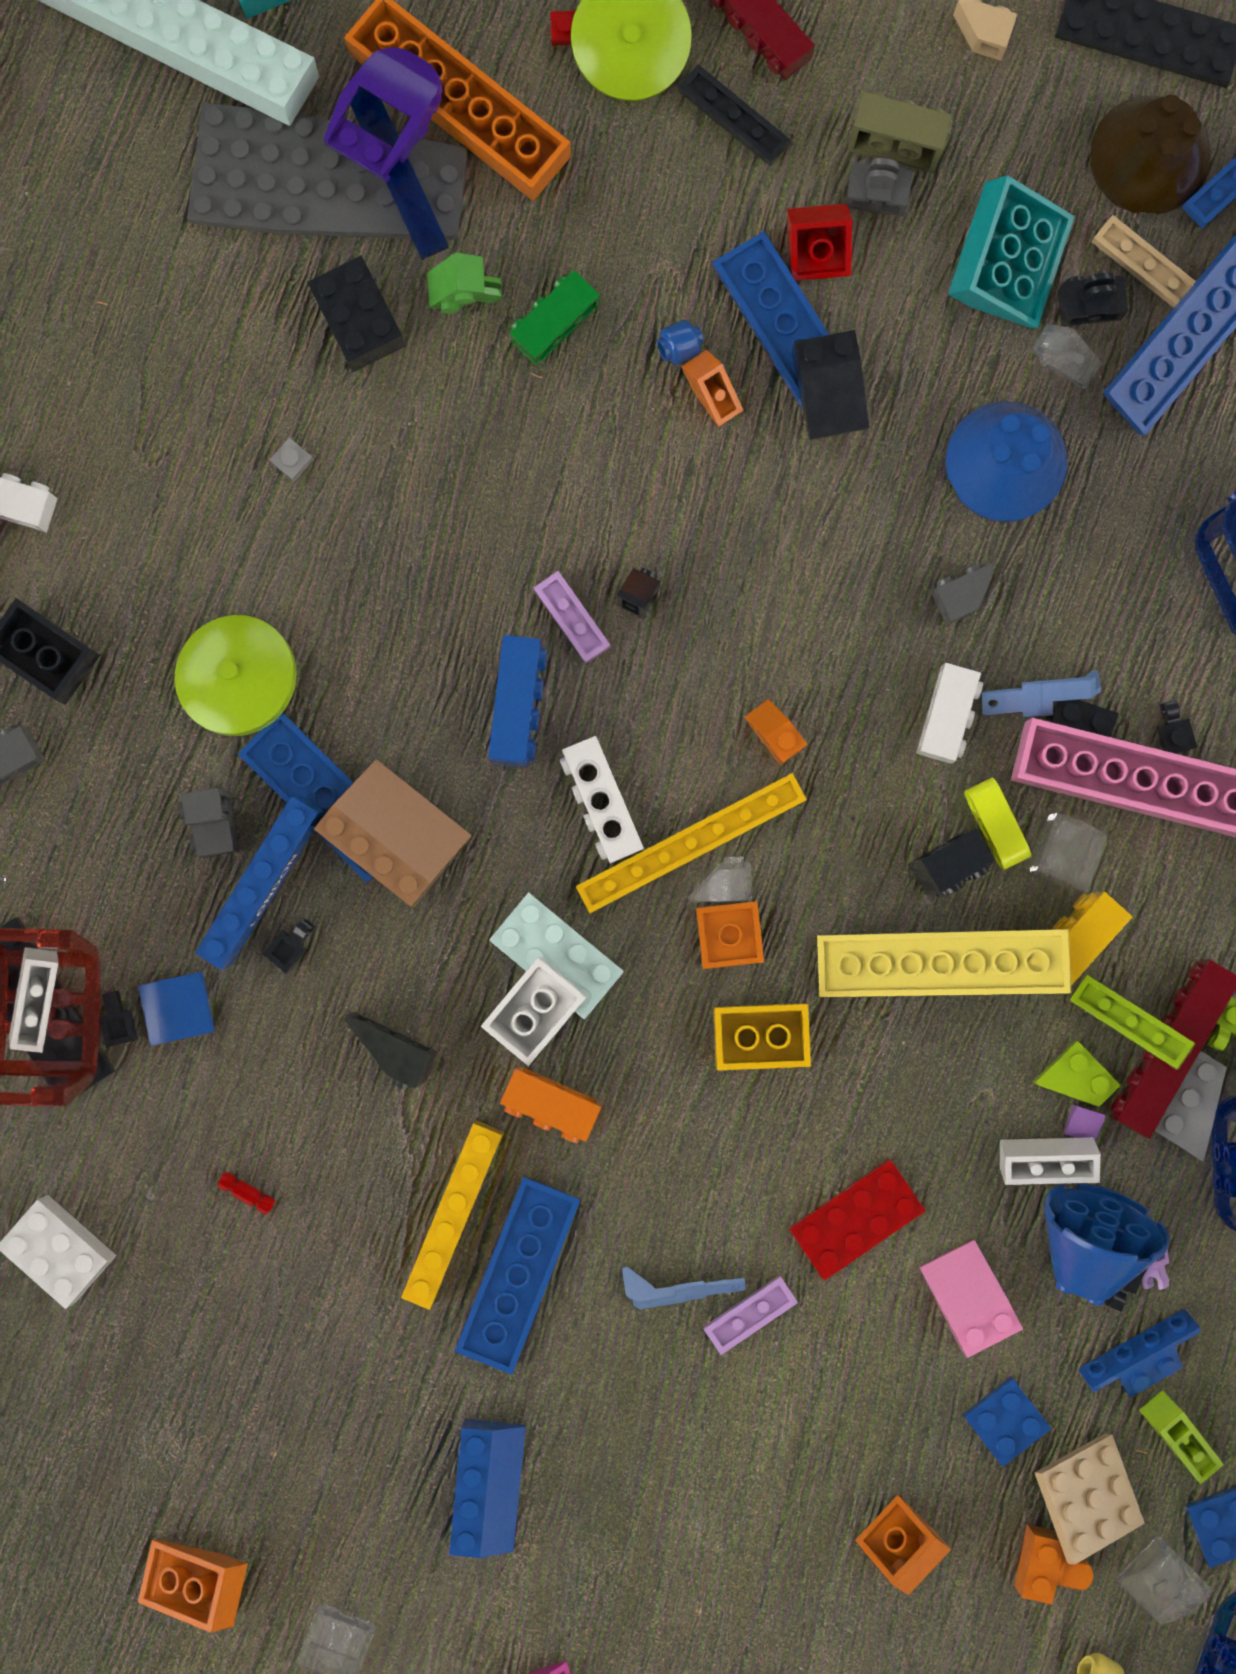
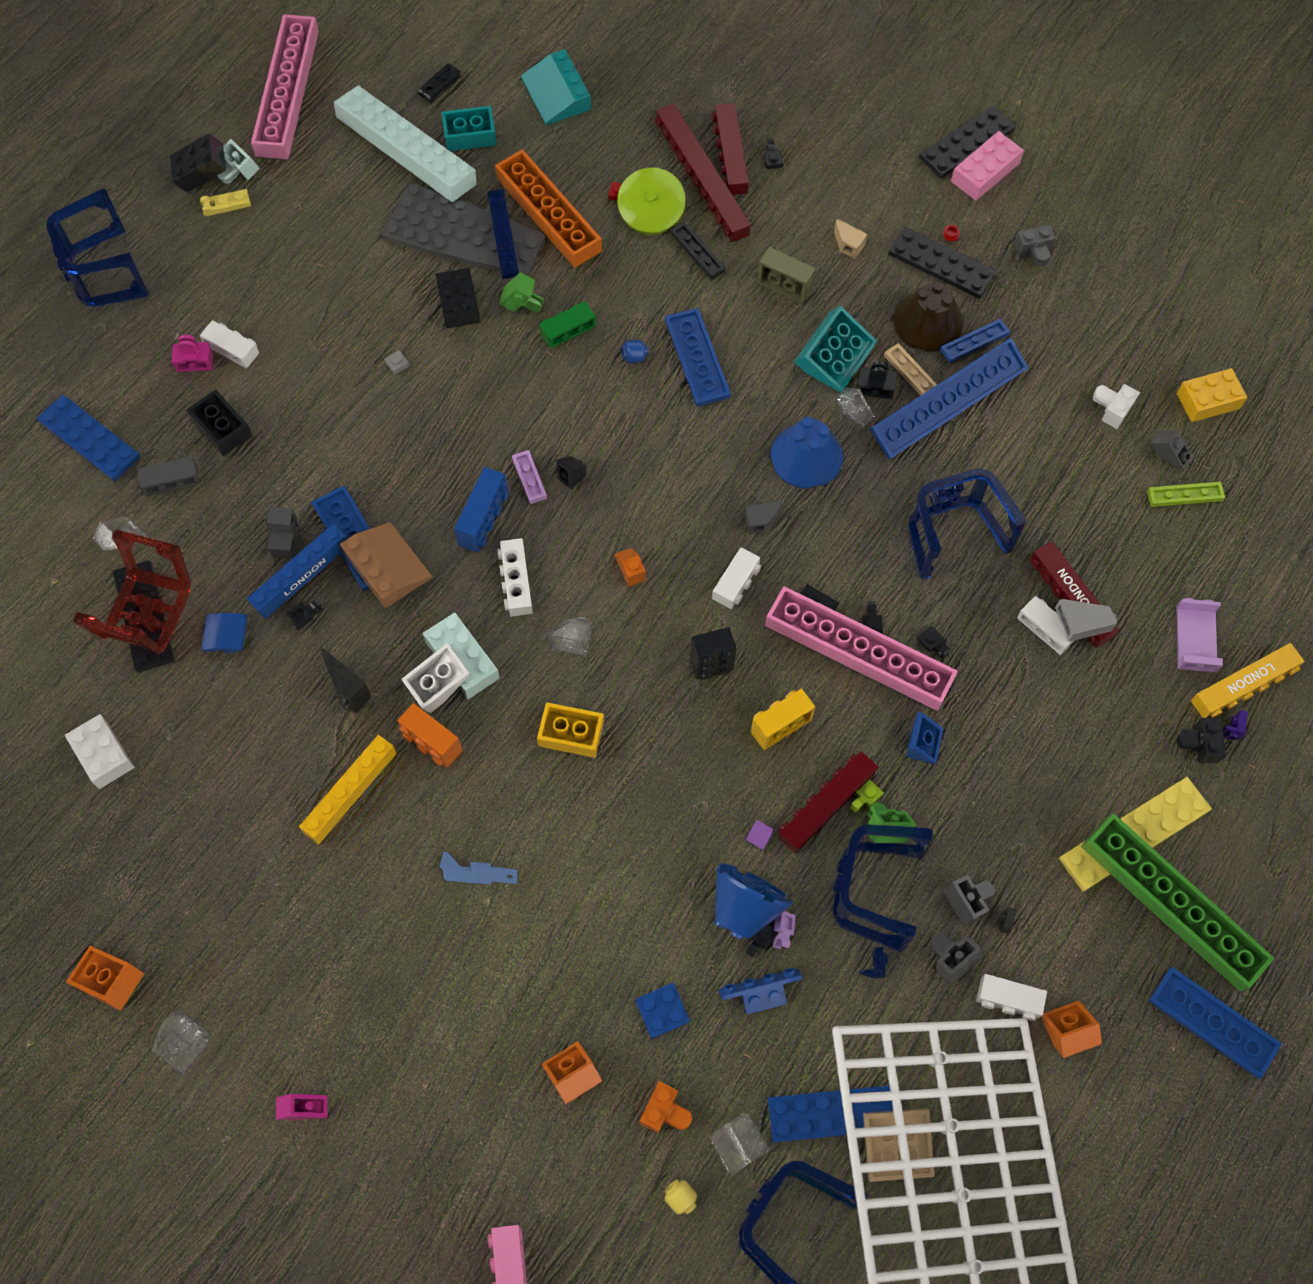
camera: 10 degrees right, 20 degrees down
(33, 1000) = (142, 593): white brick -> none
(117, 1025) = (187, 632): black plate -> none
(235, 675) = (325, 462): lime dish -> none
(246, 1193) = (227, 748): red axle -> none
(401, 82) = (516, 188): dark purple slope -> none
(487, 1488) = (312, 964): blue slope -> none
(517, 1275) = (376, 838): blue plate -> none
(691, 843) = (559, 613): yellow plate -> none
(712, 387) = (646, 378): orange slope -> none
(730, 935) = (569, 670): orange plate -> none
(750, 1315) = (515, 899): lavender plate -> none
(819, 241) = (727, 321): red slope -> none
(831, 384) = (713, 388): black slope -> none
(856, 1219) = (600, 858): red plate -> none
(879, 186) = (768, 300): dark grey brick -> none
(944, 963) = (694, 709): light yellow plate -> none
(970, 1298) = (659, 924): bright pink slope -> none
(997, 823) = (750, 646): neon yellow beam -> none
(1038, 696) = (794, 579): medium blue piece -> none
(1049, 1161) = (730, 848): white brick -> none
(1069, 852) = (789, 671): clear slope -> none
(1078, 1076) = (763, 806): lime wing -> none
(1089, 1498) = (702, 1069): tan plate -> none
(1132, 1022) = (803, 776): lime plate -> none
(1181, 1437) = (775, 1048): lime slope -> none
(1194, 1107) = (831, 842): light grey wing -> none

